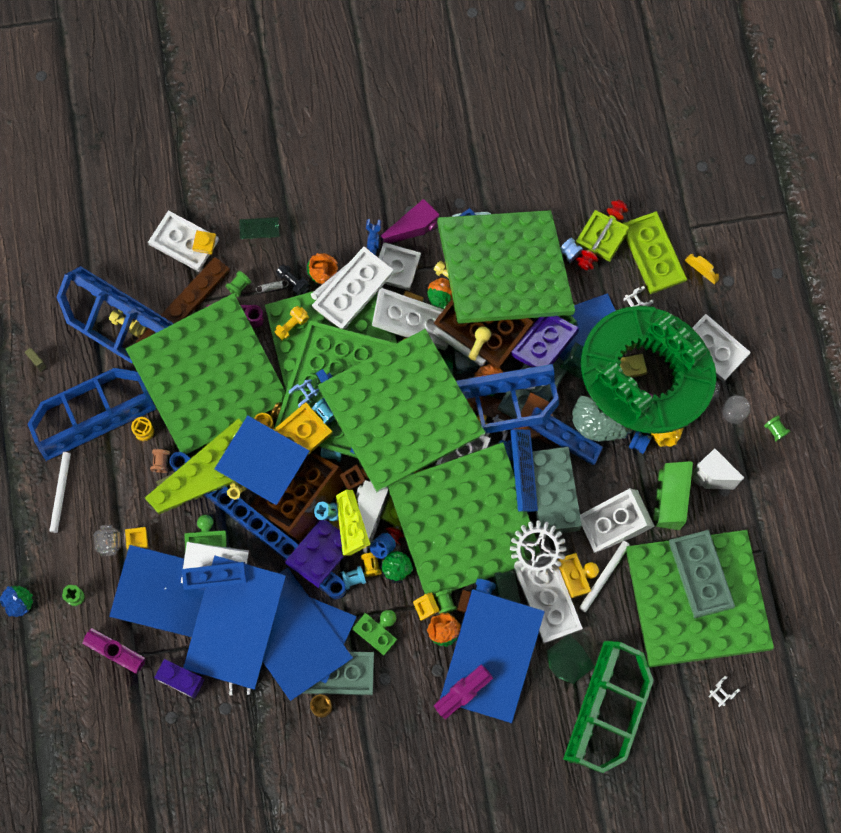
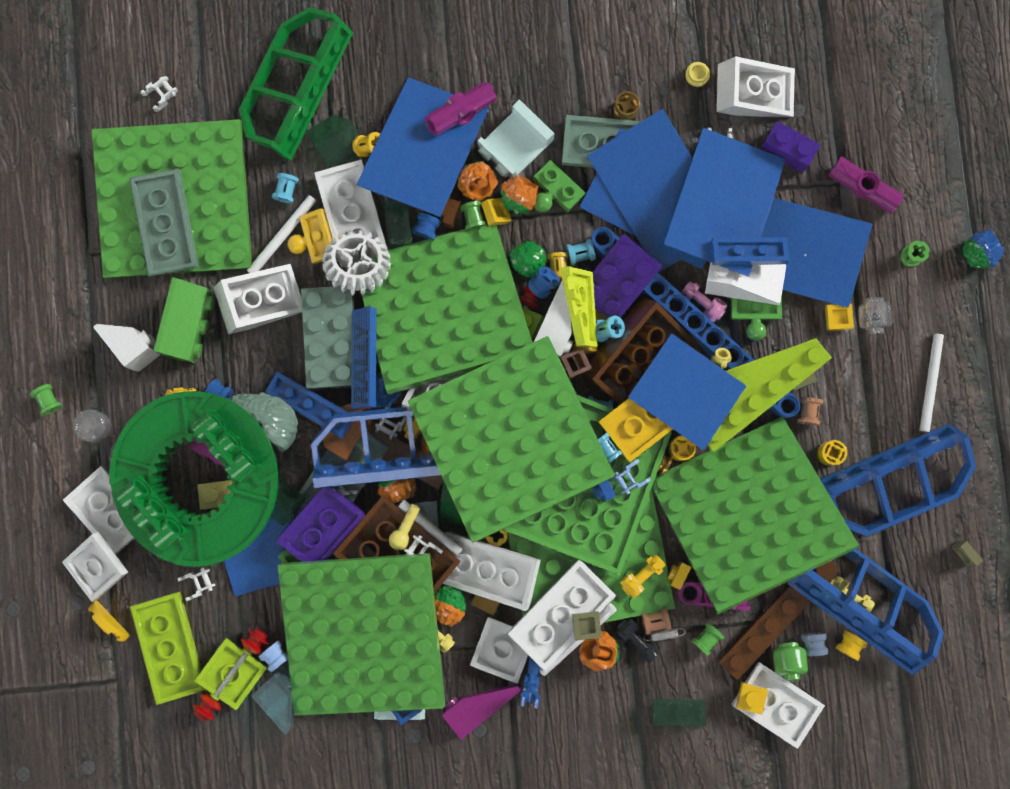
camera: 175 degrees left, 10 degrees up
(127, 285) = (851, 645): none -> yellow wheel
(156, 285) = (815, 644): none -> sand blue wheel
(174, 271) = (790, 661): none -> bright green head
(209, 729) = (755, 88): none -> white slope
(240, 537) = (714, 308): none -> bright pink bar
(260, 741) = (697, 74): none -> light yellow plate
(263, 328) = (678, 575): none -> yellow plate
(279, 294) = (662, 615): none -> nougat bush
(333, 279) = (586, 625): none -> olive plate
(408, 621) = (518, 194): none -> orange piece
(415, 669) = (516, 141): none -> light aqua panel
(461, 330) = (418, 540): none -> white piece
(540, 657) = (368, 141): none -> yellow bush
(565, 218) = (277, 701): none -> clear light blue slope
(602, 621) = (286, 196): none -> medium azure bush
(717, 304) = (95, 566): none -> white plate

